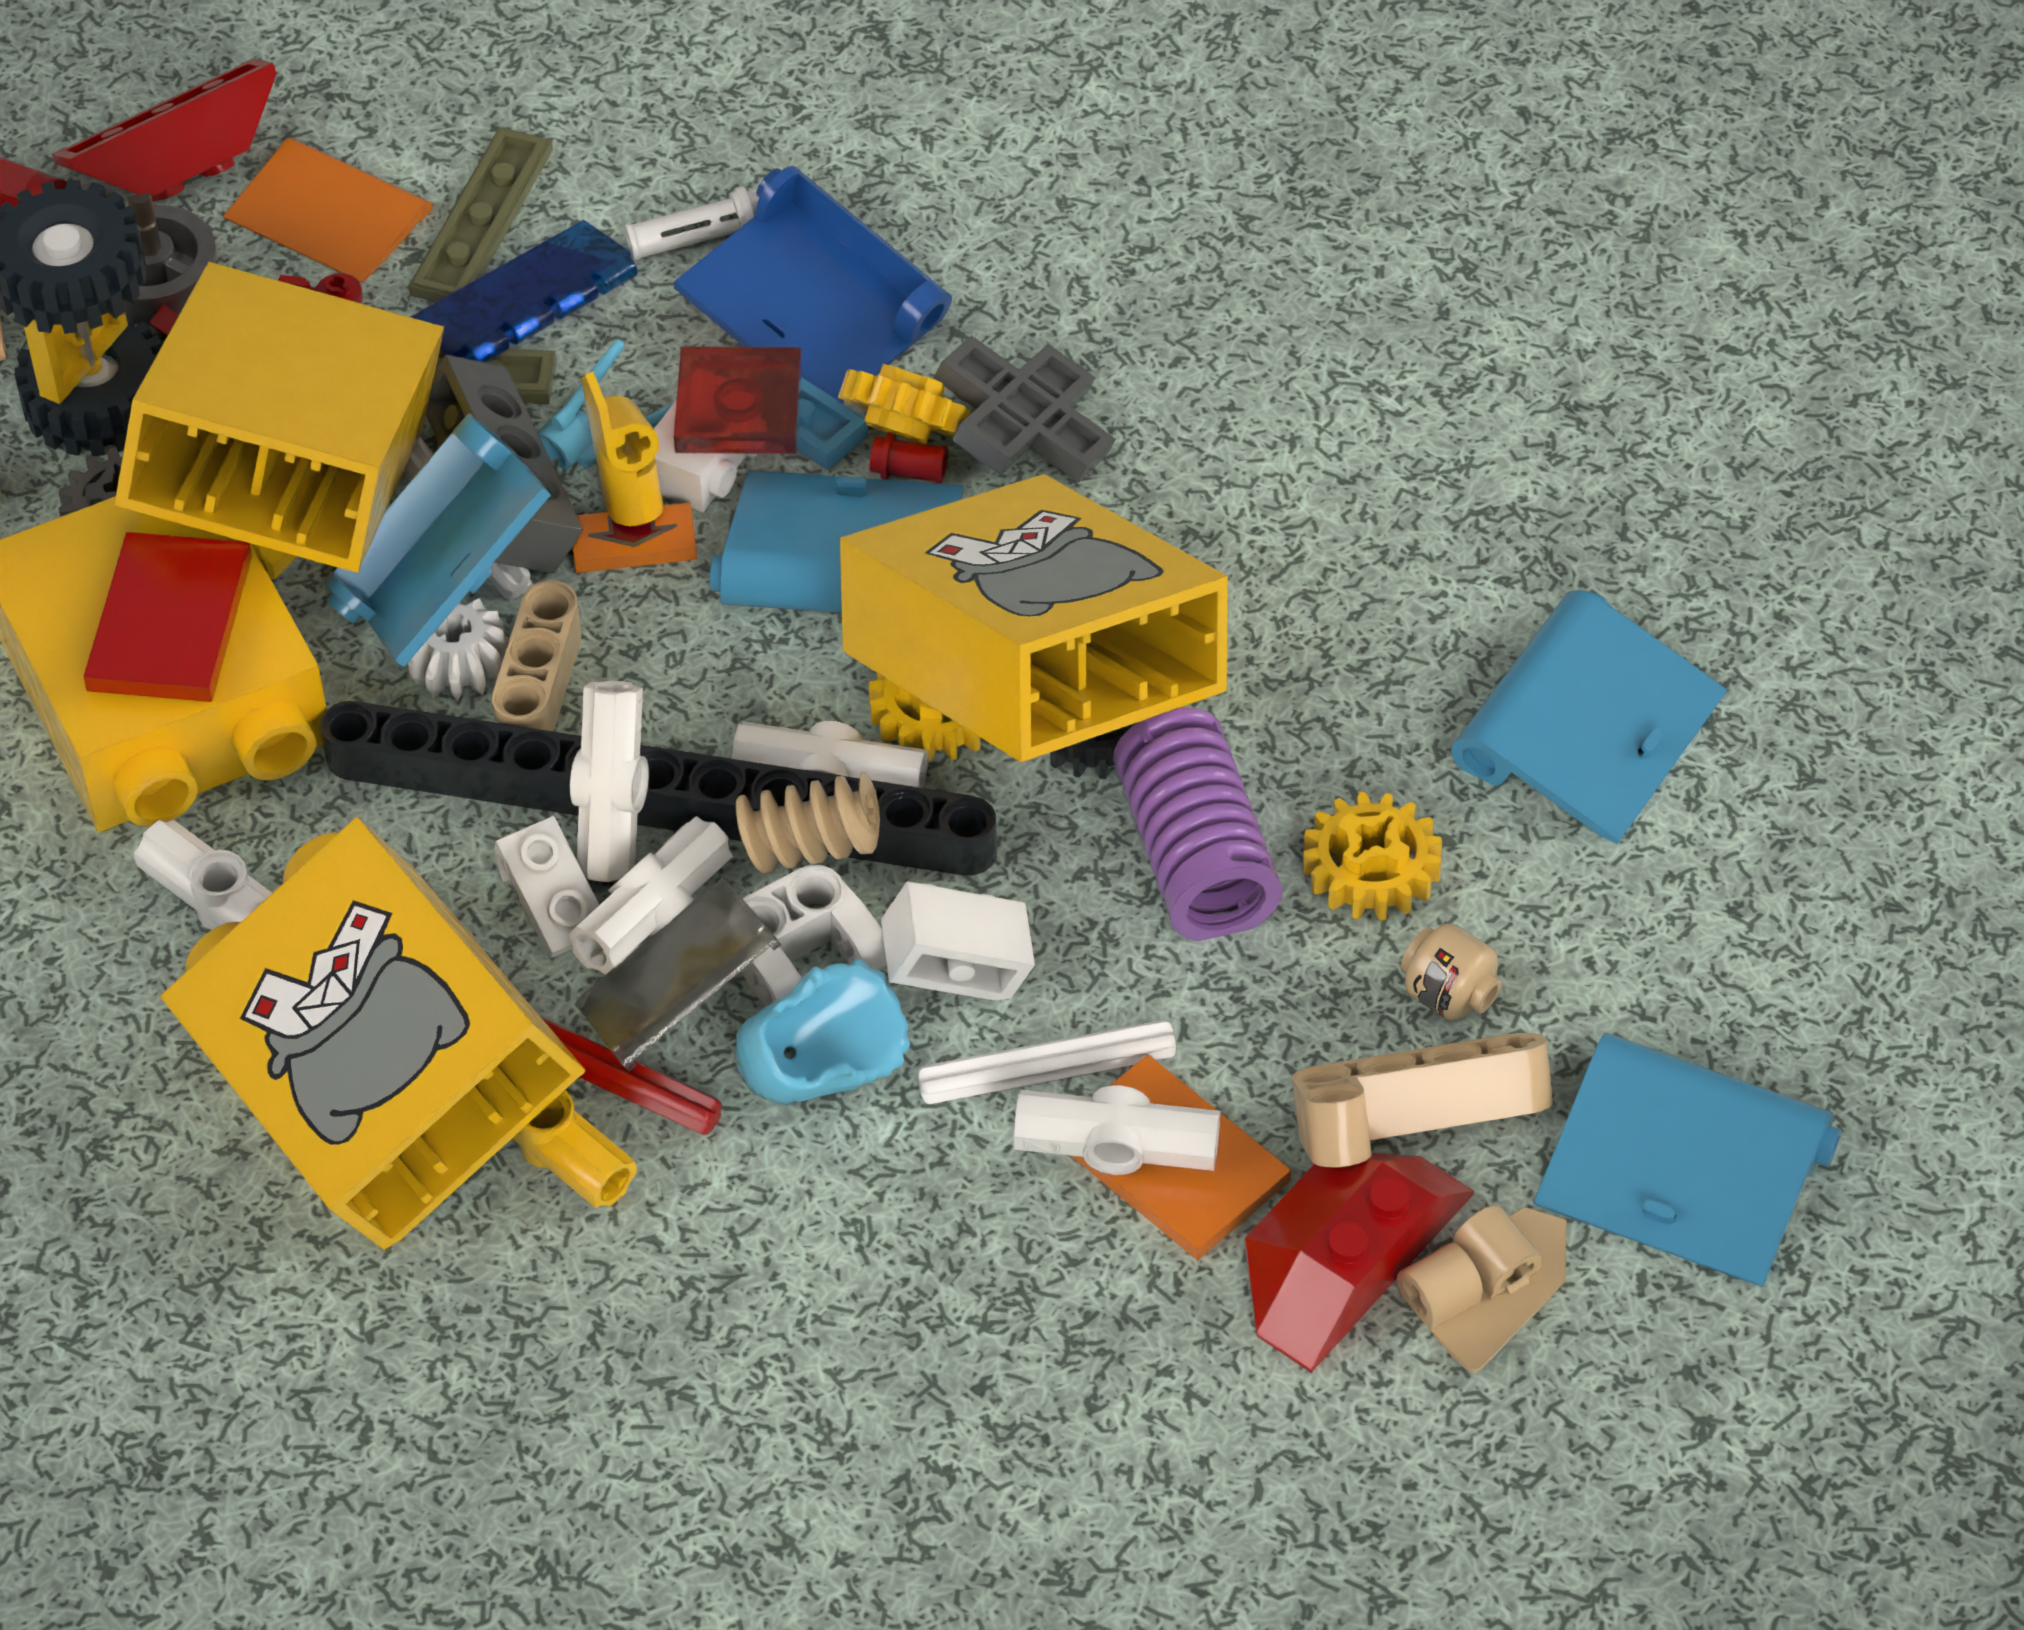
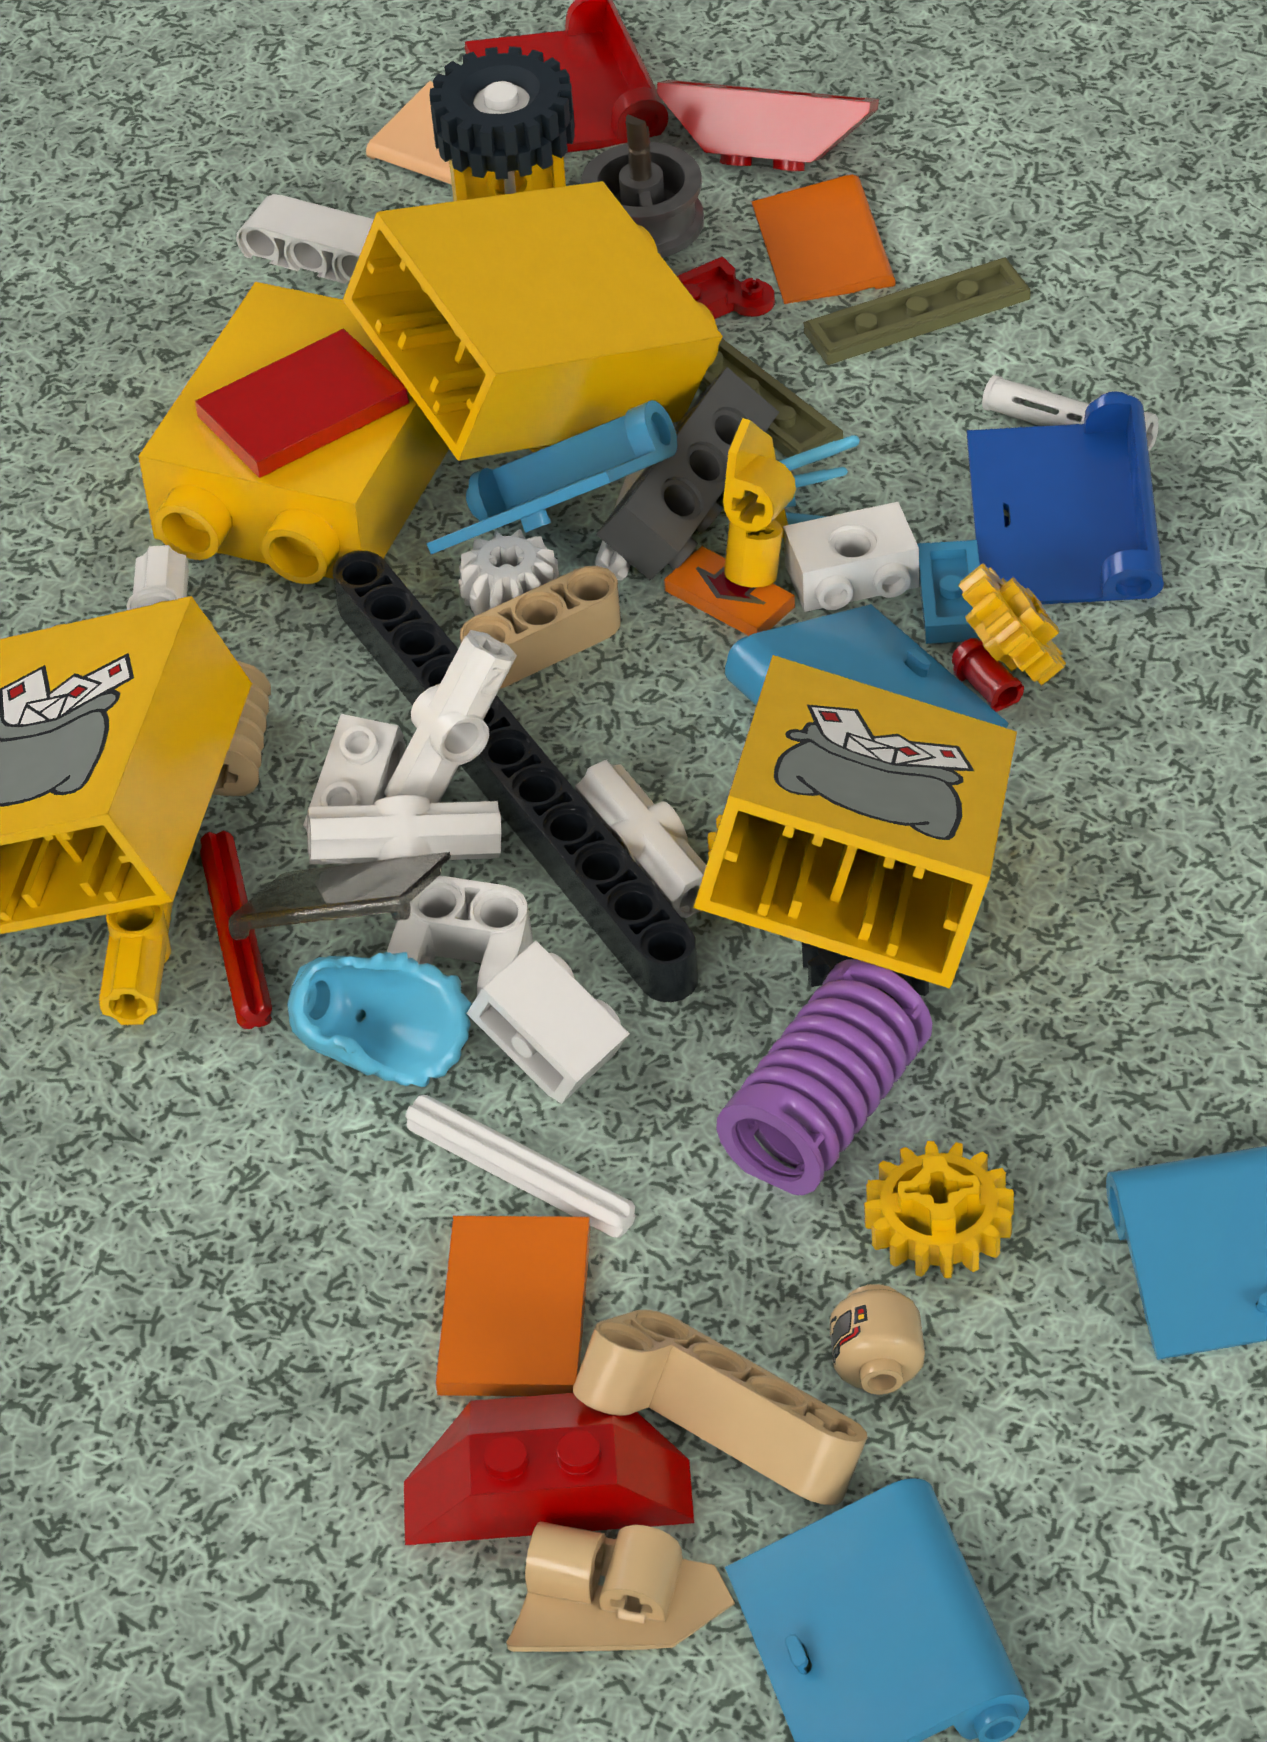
camera: 50 degrees right, 5 degrees down
(530, 292) = (853, 373): clear blue windscreen -> none
(738, 400) = (892, 537): clear red tile -> none
(811, 826) = (540, 854): tan piece -> none
(1024, 409) = (1105, 693): dark grey plate -> none
(1116, 1130) = (478, 1245): white piece -> none

